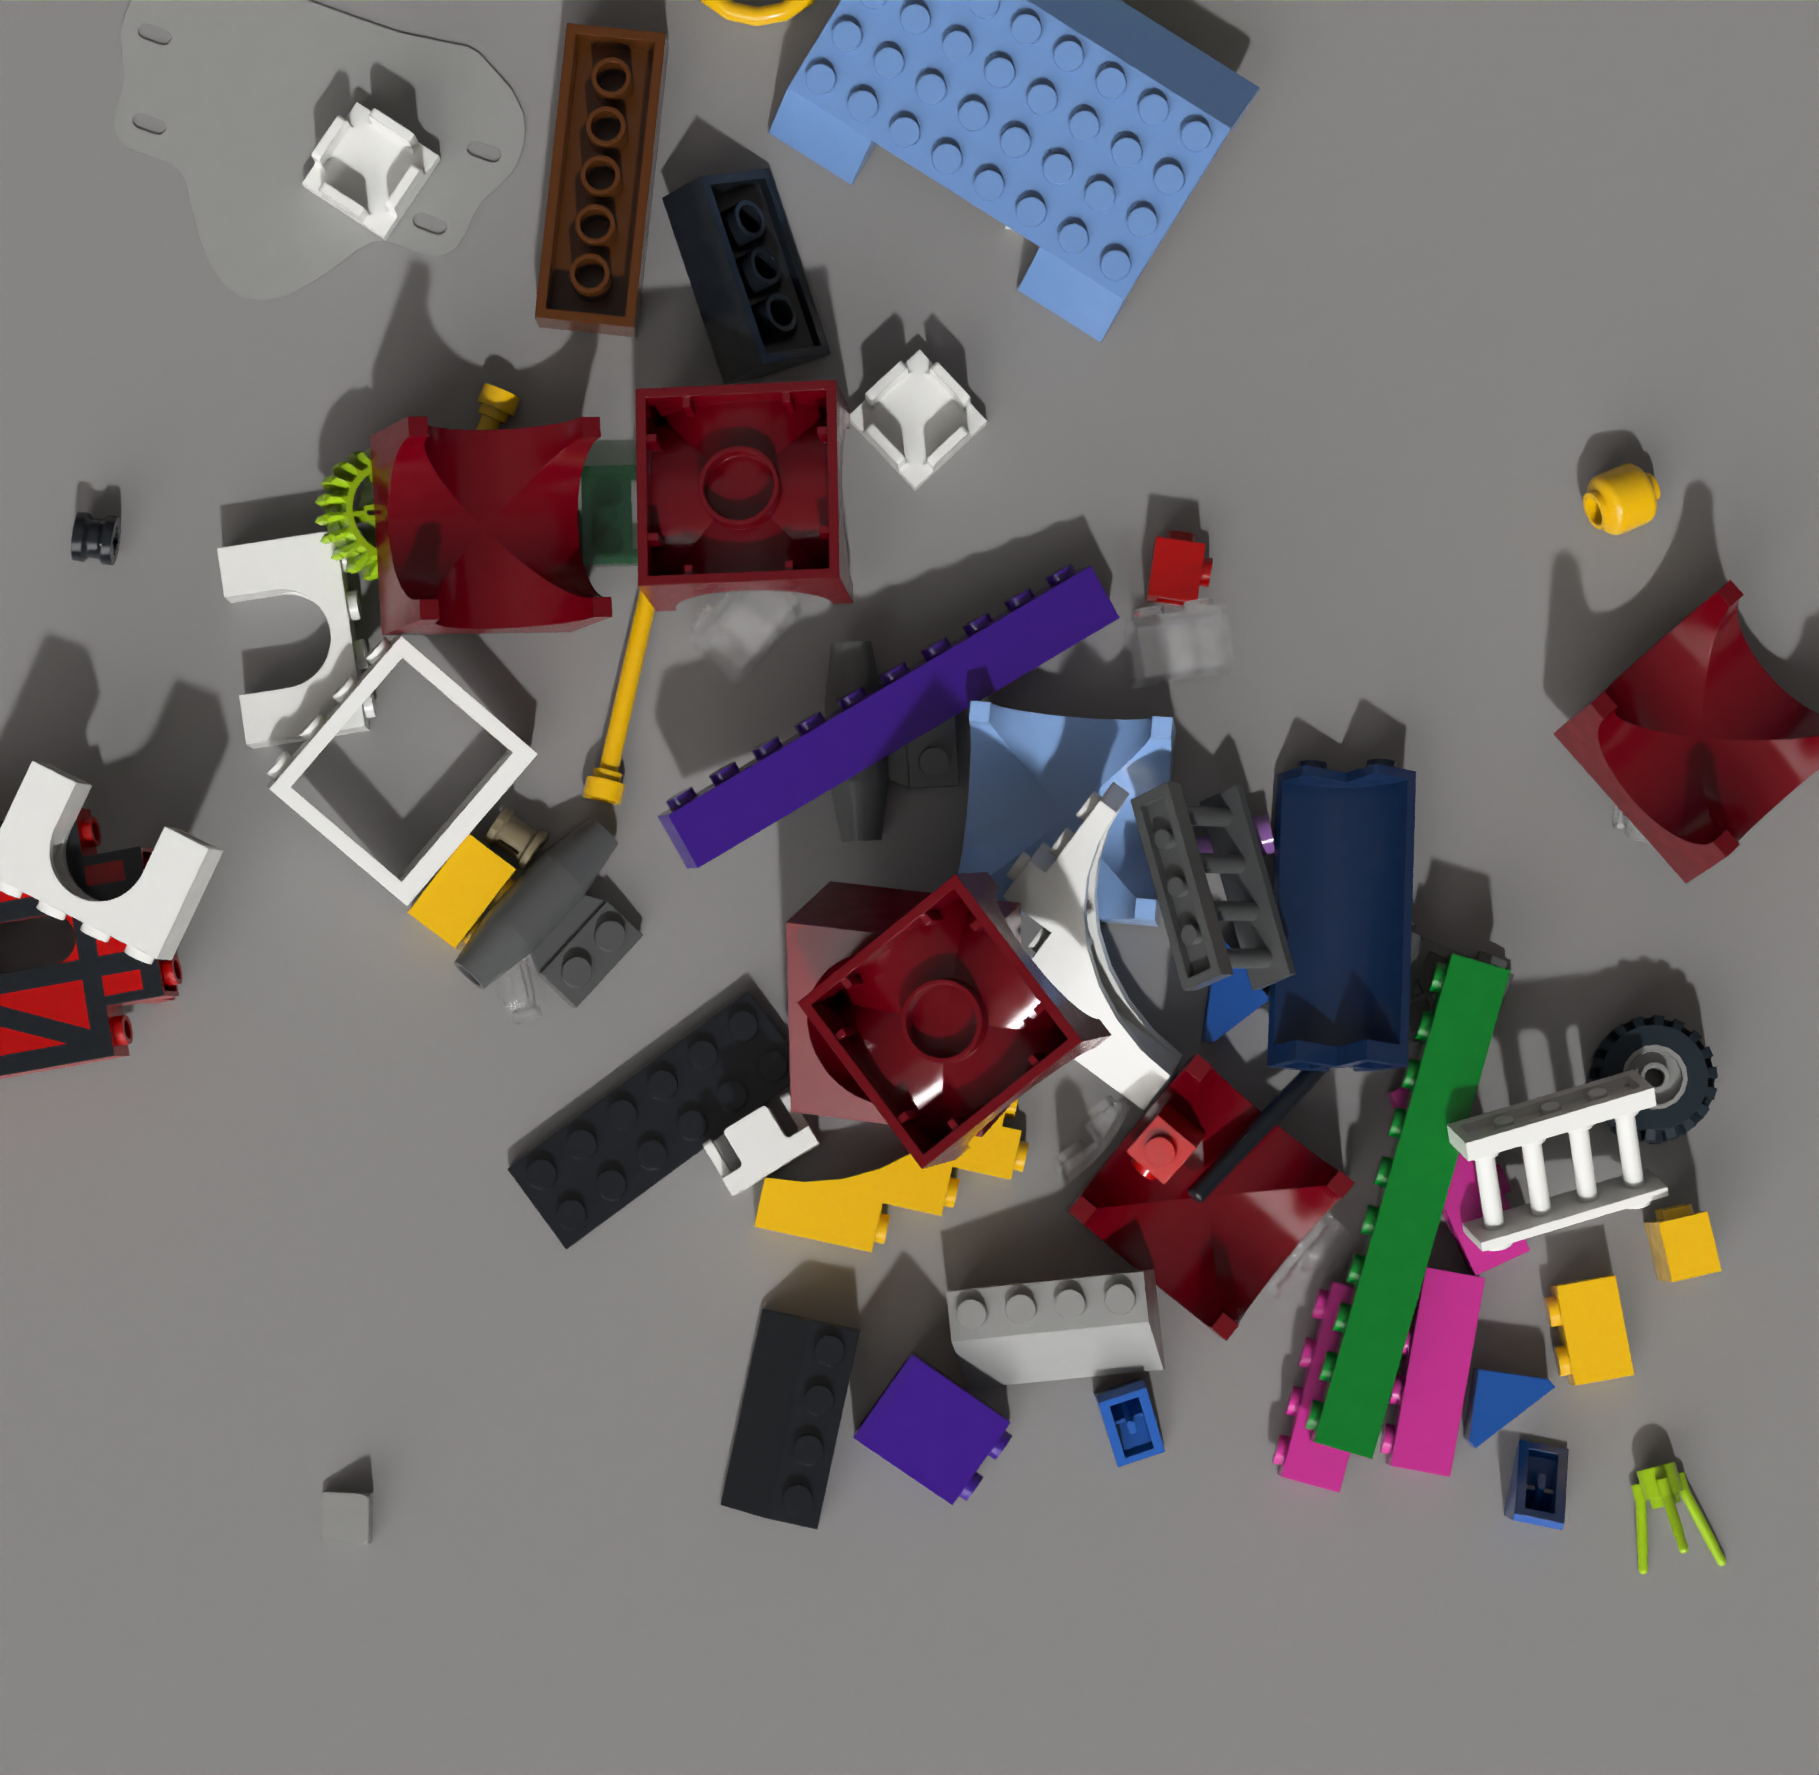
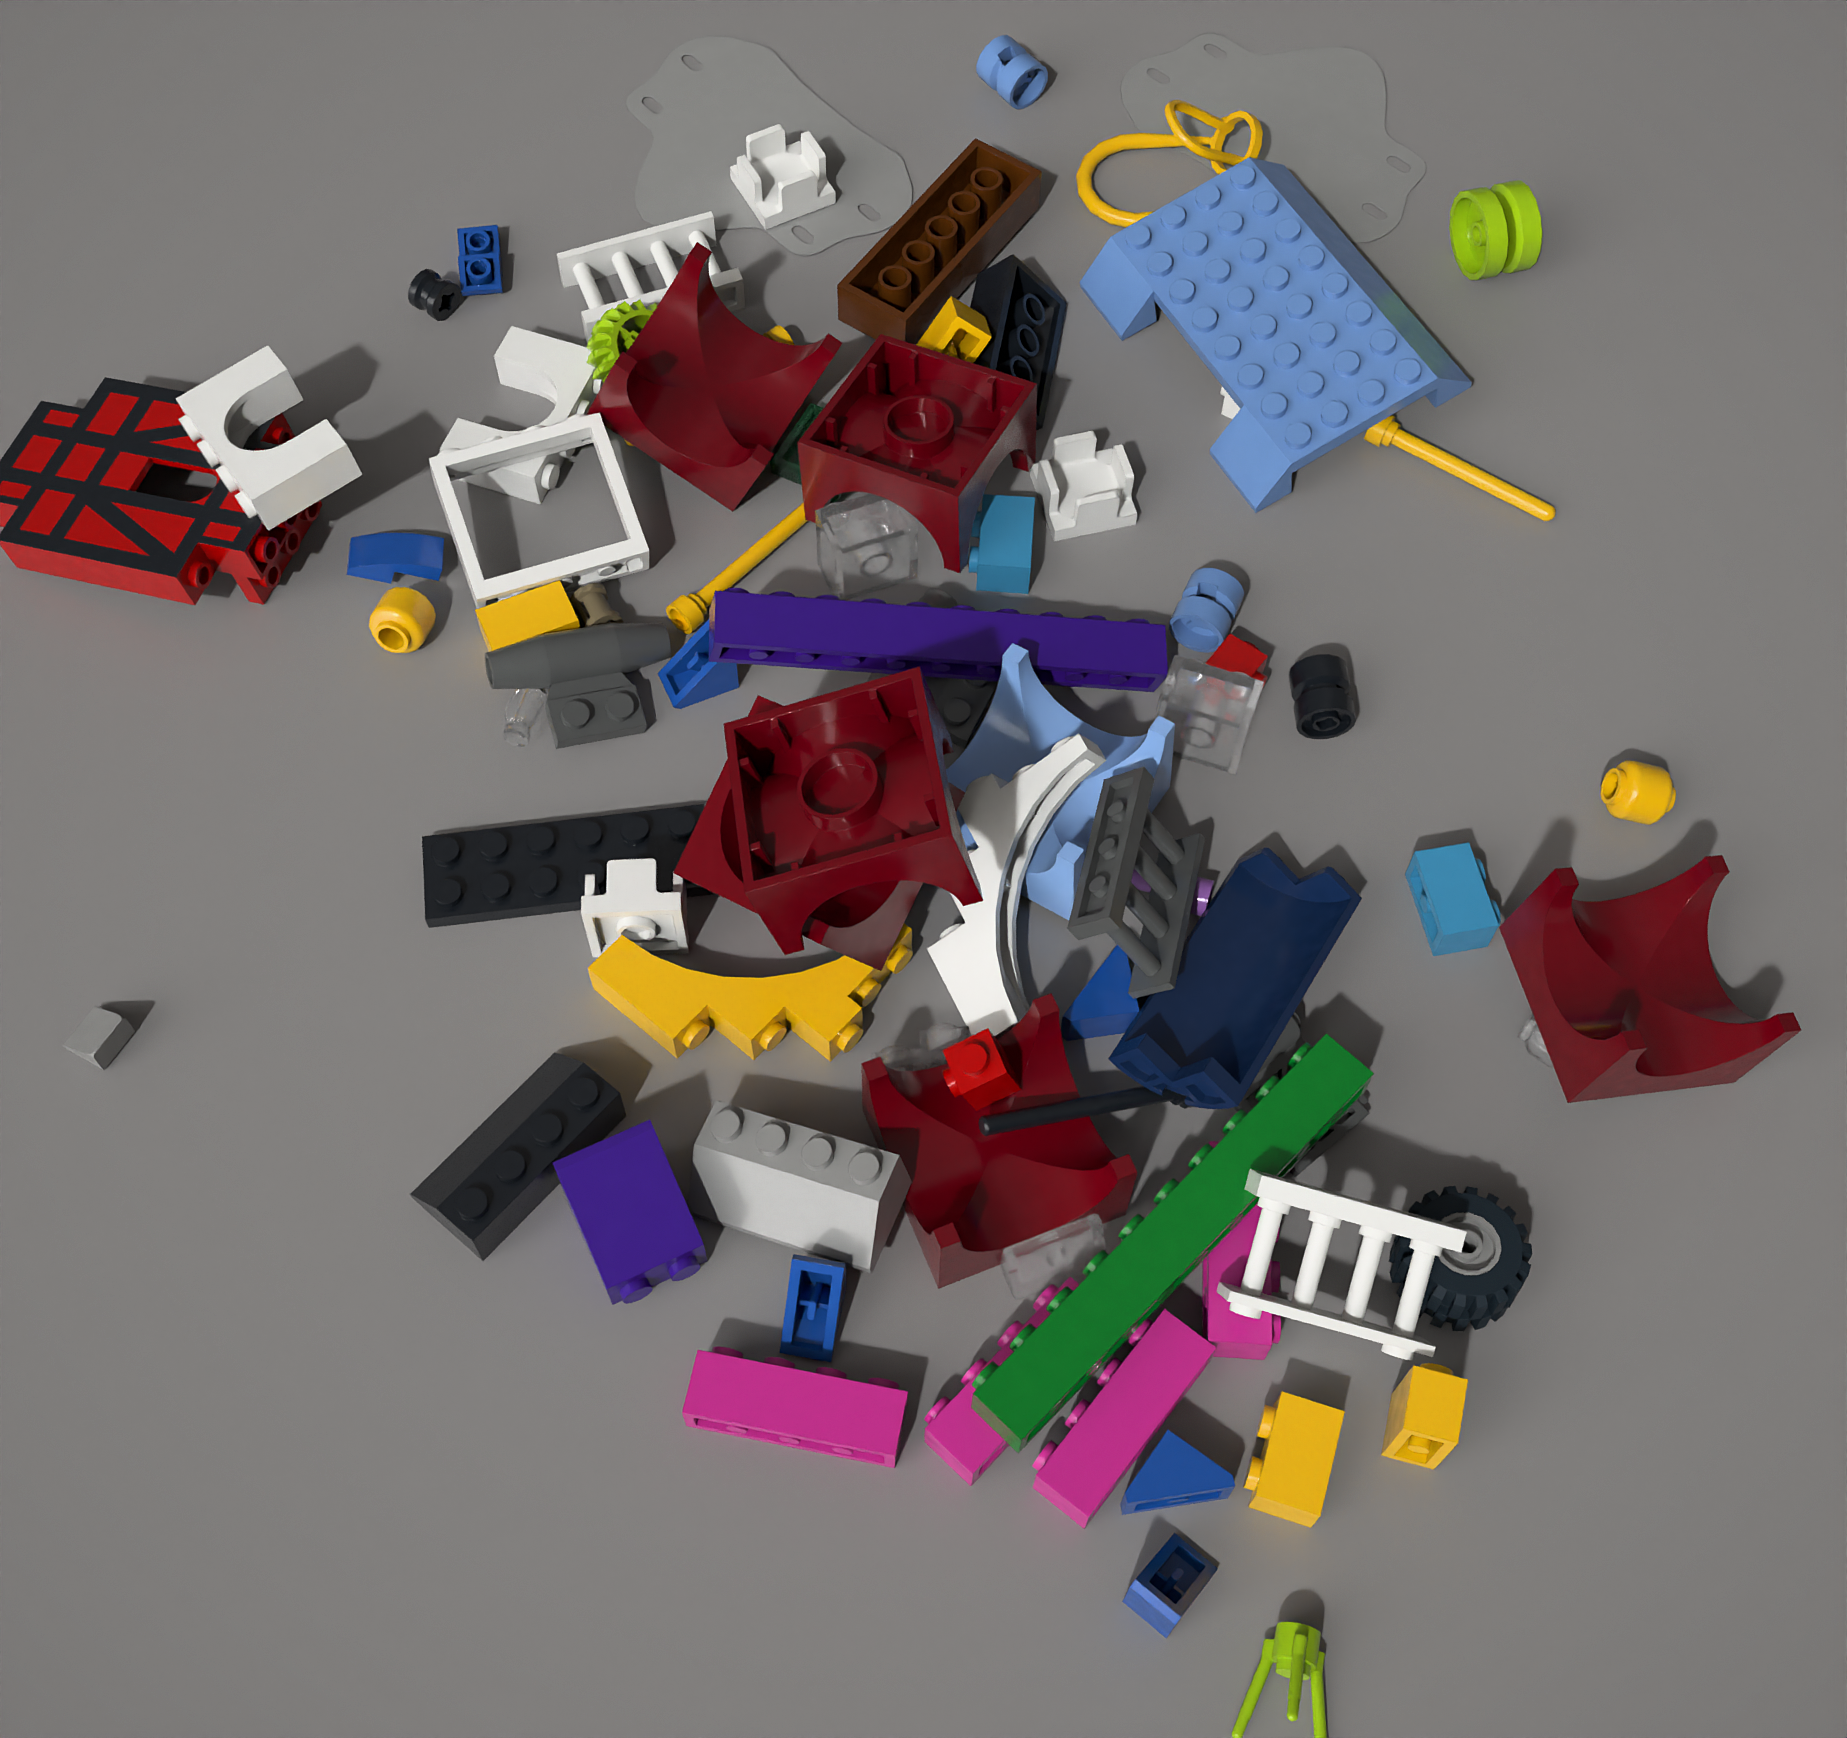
camera: 25 degrees right, 25 degrees down
(110, 461) = (480, 260): none -> blue slope
(275, 882) = (382, 554): none -> blue slope
(330, 438) = (640, 249): none -> white fence
(334, 952) = (402, 620): none -> yellow head
(649, 854) = (692, 677): none -> blue slope
(695, 334) = (957, 332): none -> yellow brick
(877, 537) = (1004, 544): none -> dark azure brick
(1118, 527) = (1206, 610): none -> medium blue wheel
(1163, 1509) = (796, 1406): none -> dark pink brick
(1276, 554) = (1321, 696): none -> black wheel
(1304, 179) = (1389, 432): none -> yellow piece
(1496, 713) = (1452, 899): none -> dark azure brick

